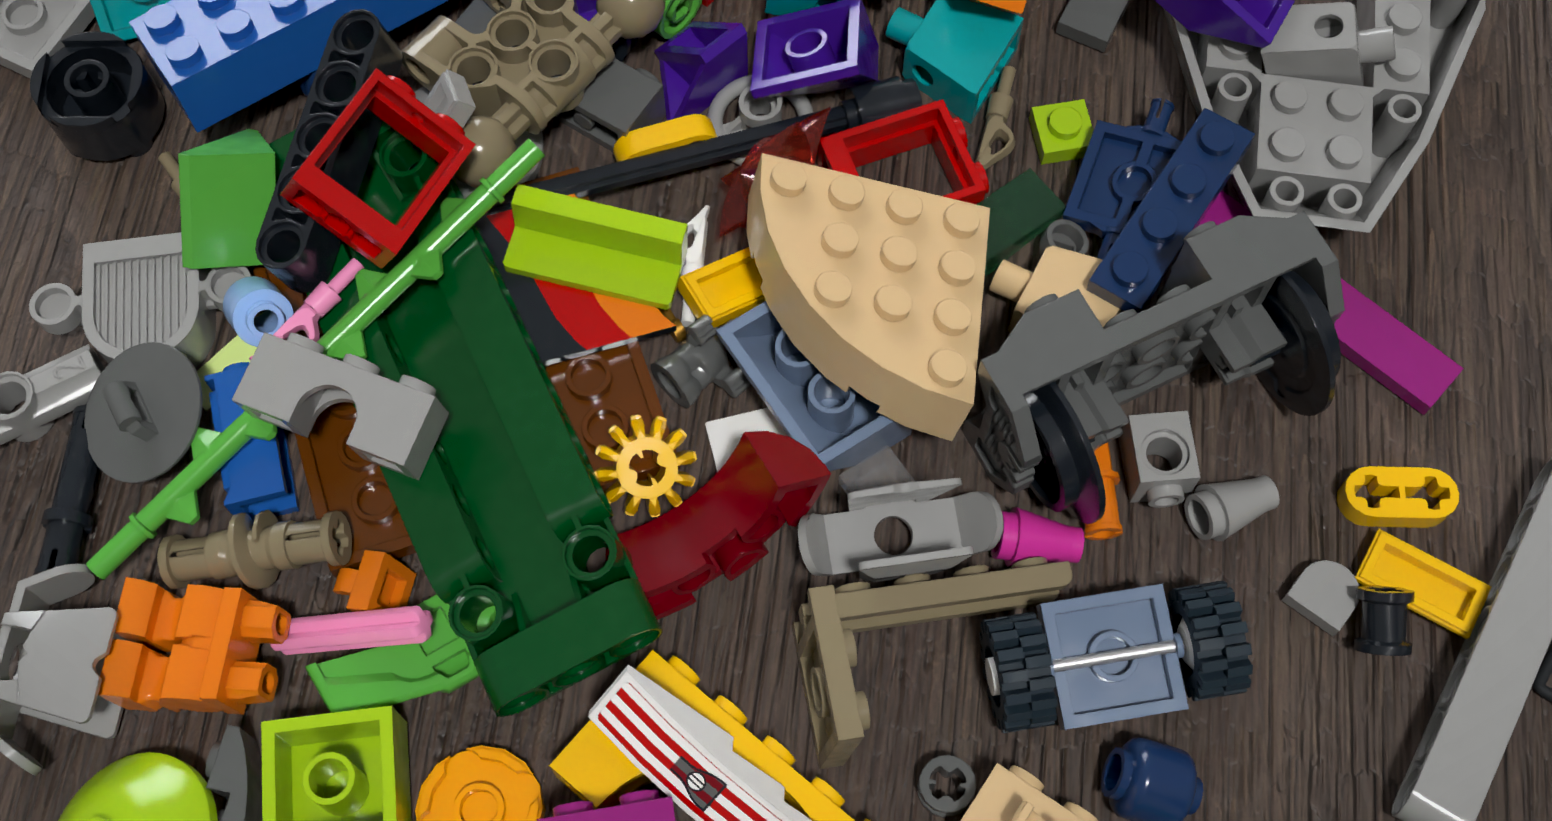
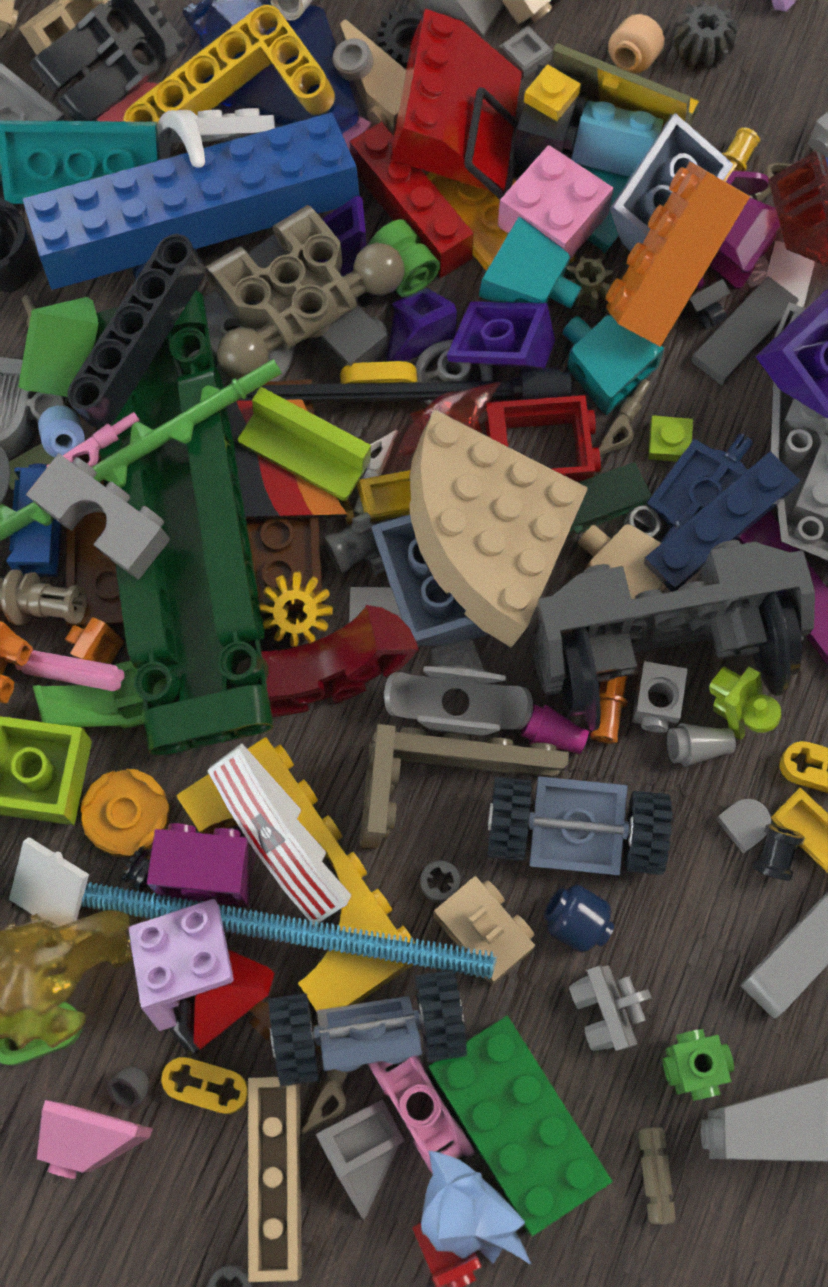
camera: 15 degrees right, 5 degrees up
(347, 214) = (131, 381): red window -> none
(451, 97) = (224, 320): light grey tile -> none
(1268, 432) = (743, 703): none -> lime hips

